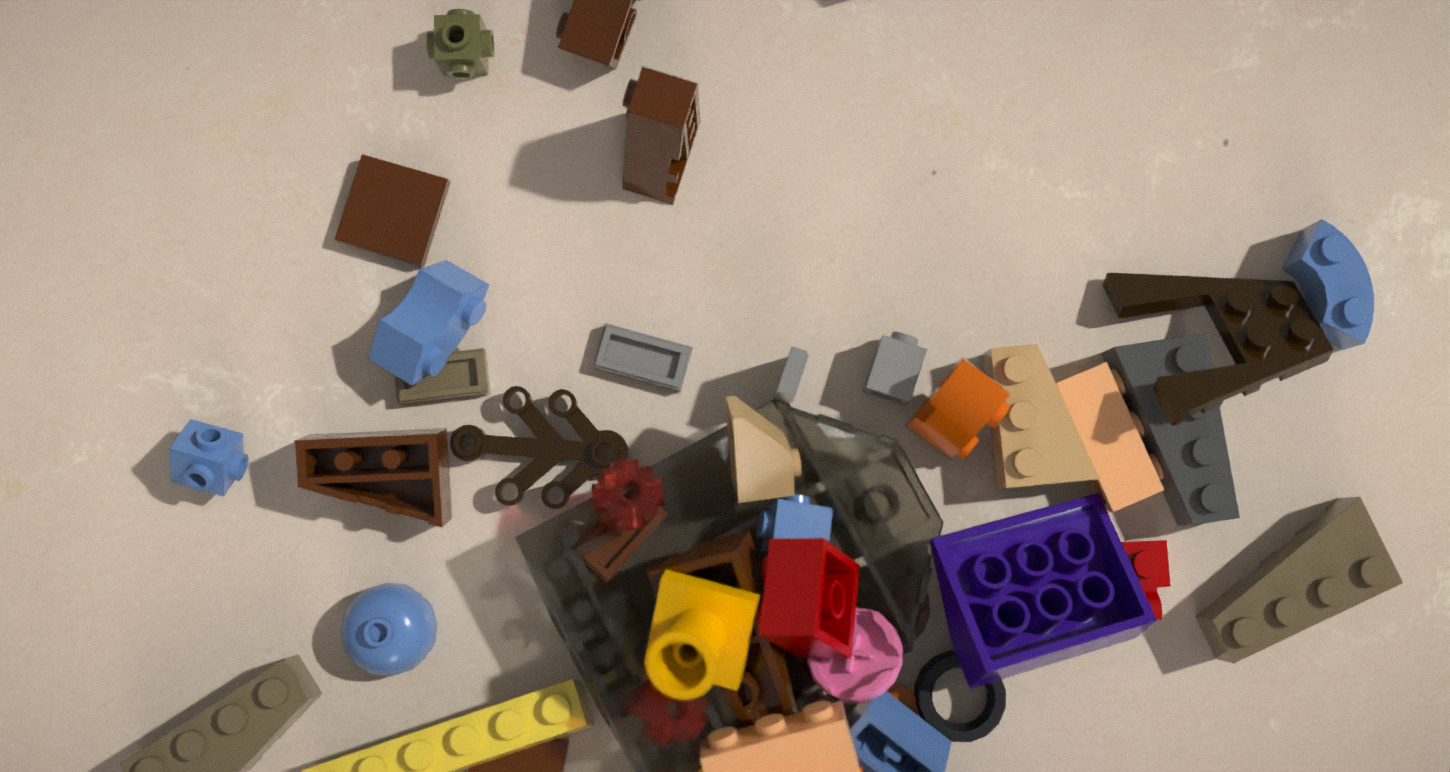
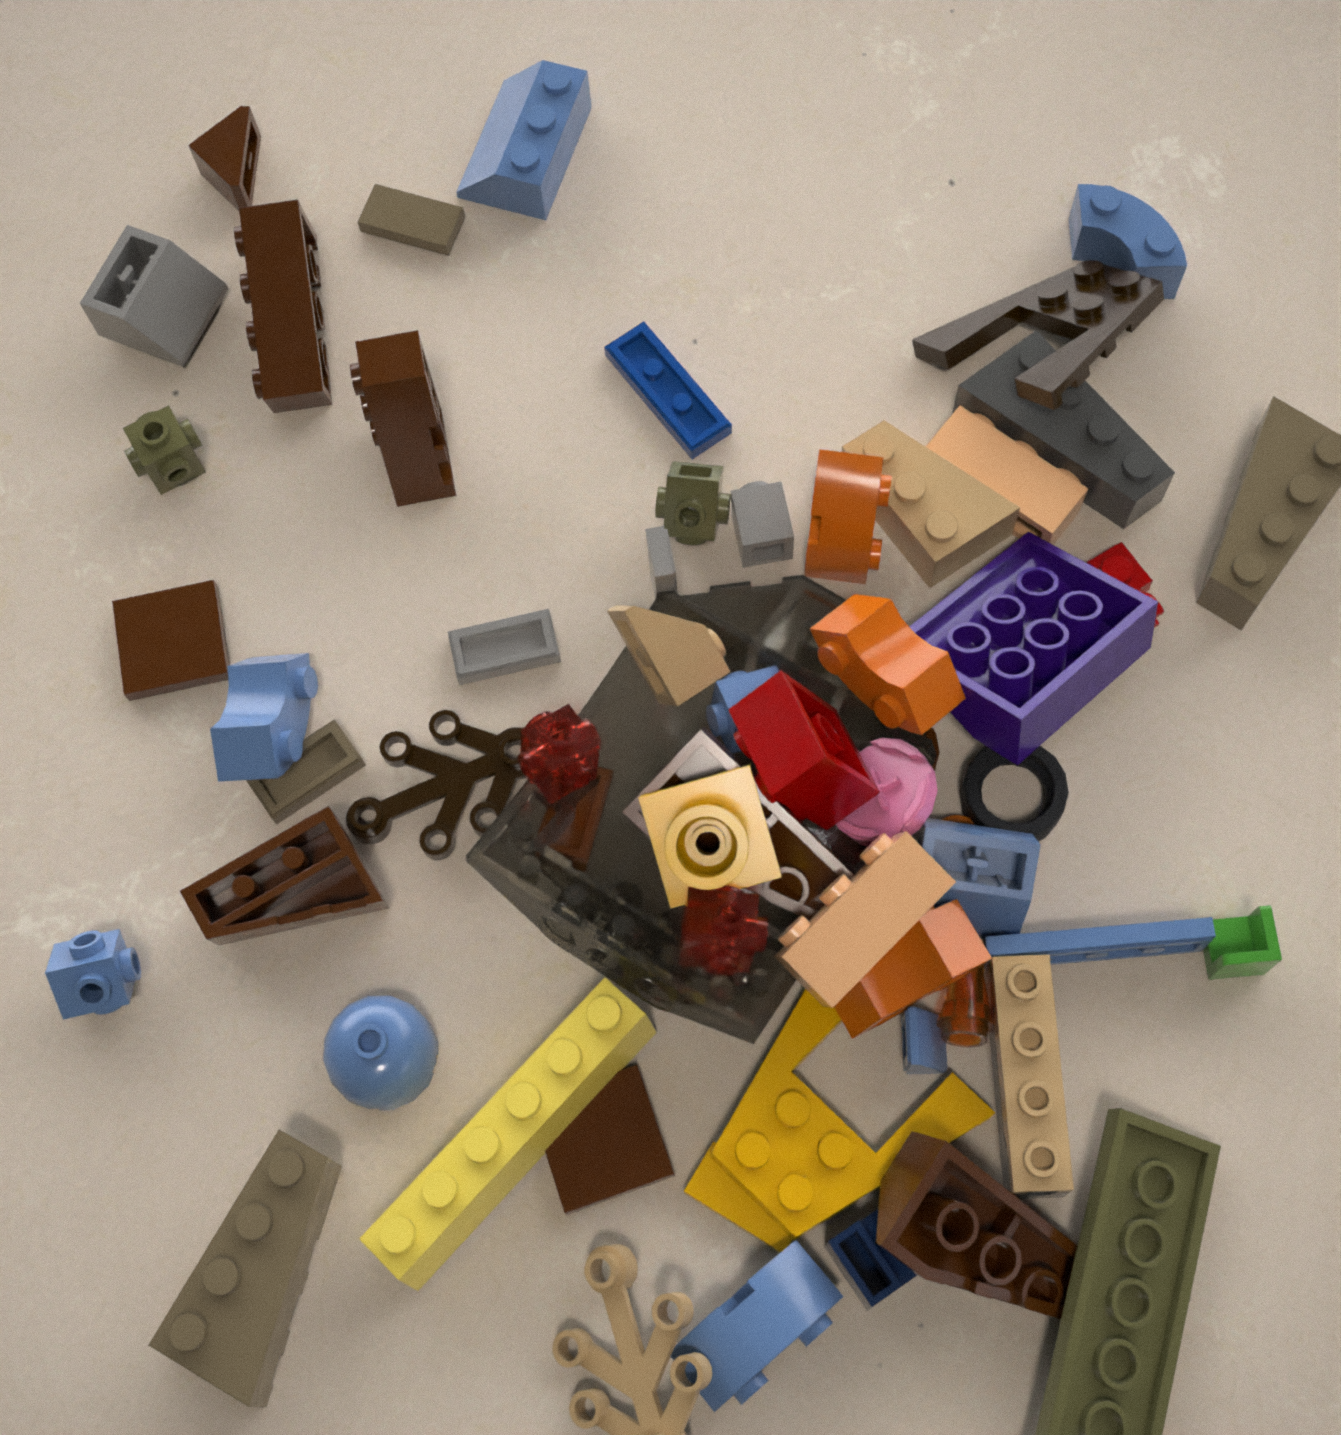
camera: 25 degrees left, 15 degrees down
(850, 324) = (693, 502): none -> olive brick
(887, 206) = (668, 390): none -> blue tile
(914, 563) = (887, 664): none -> orange brick

